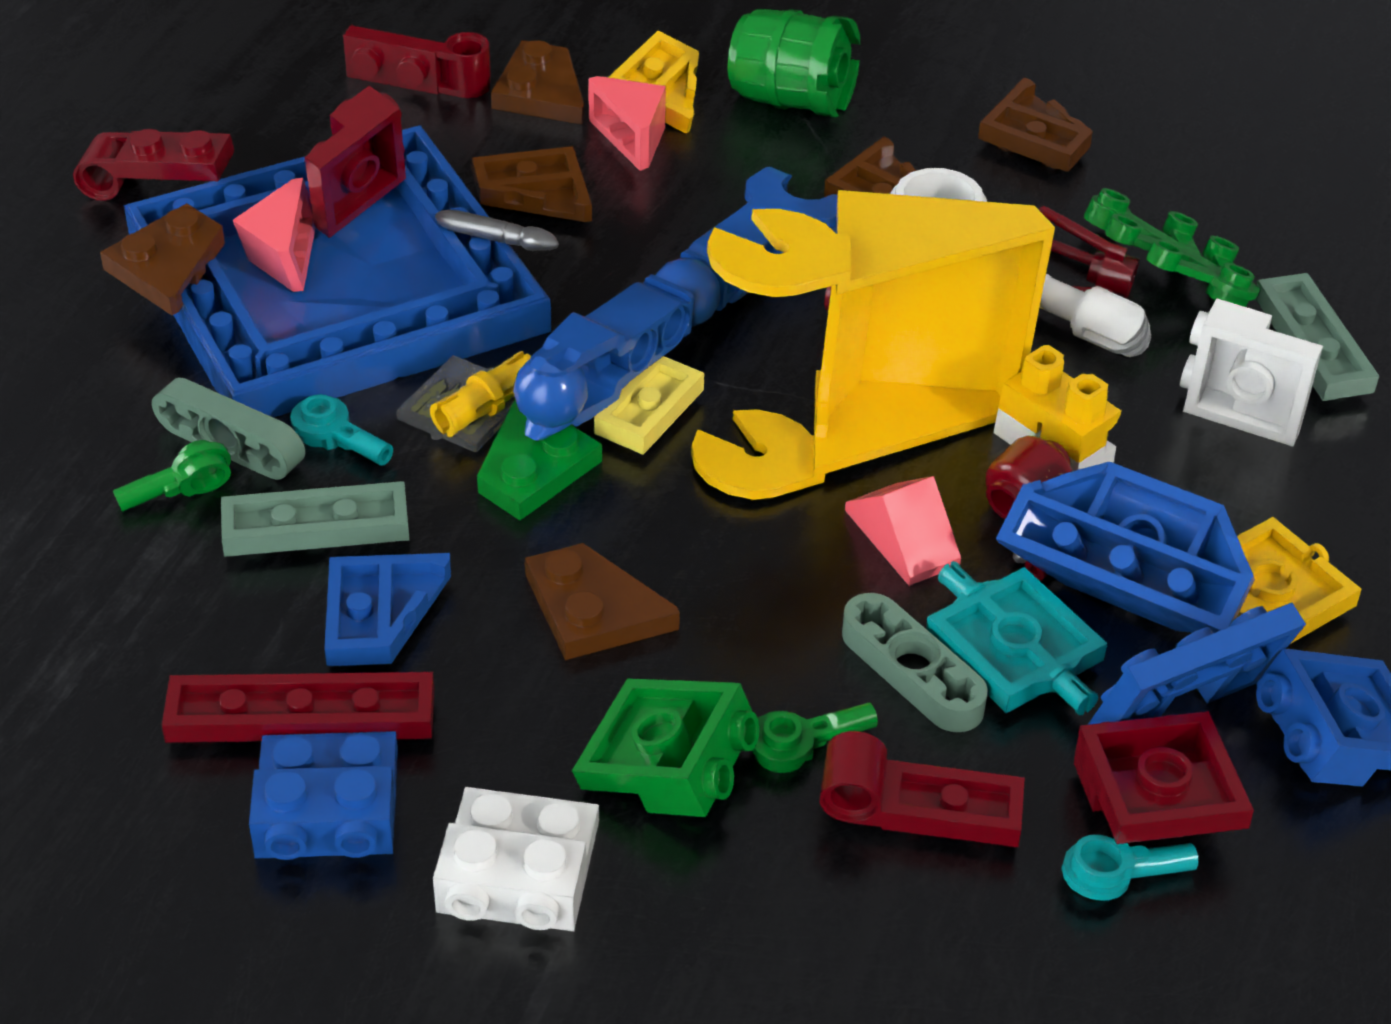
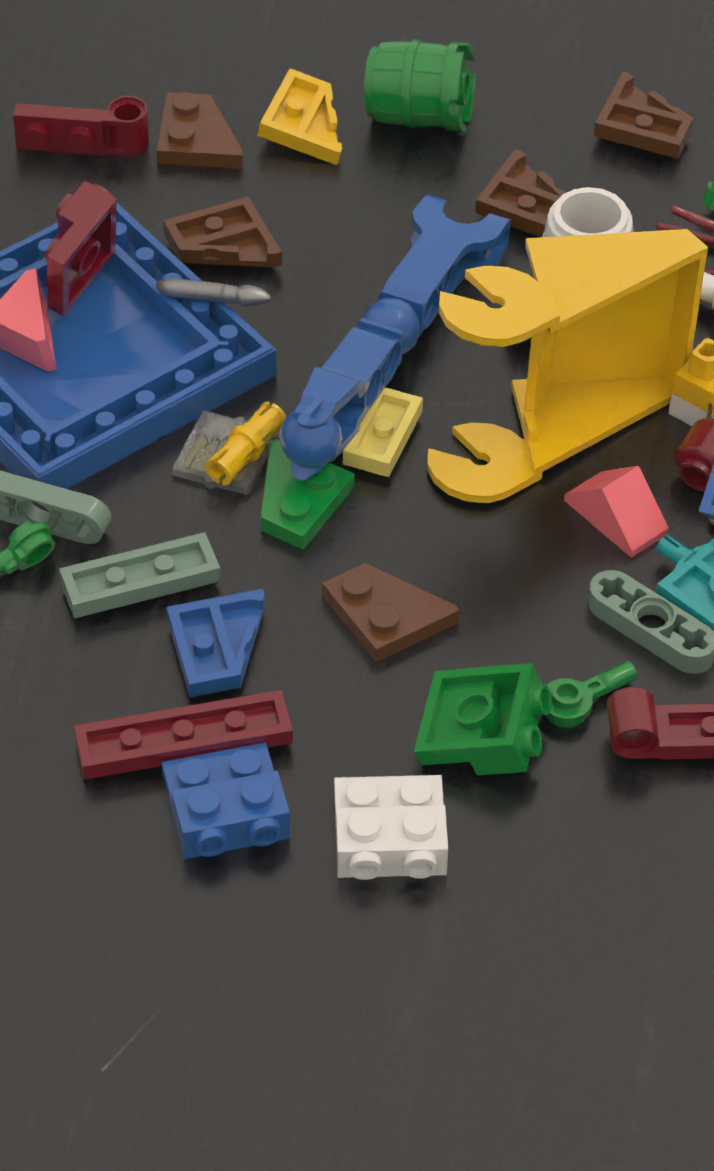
camera: 10 degrees left, 5 degrees up
(326, 424) = (118, 491): teal plate -> none
(628, 116) = (285, 158): coral slope -> none

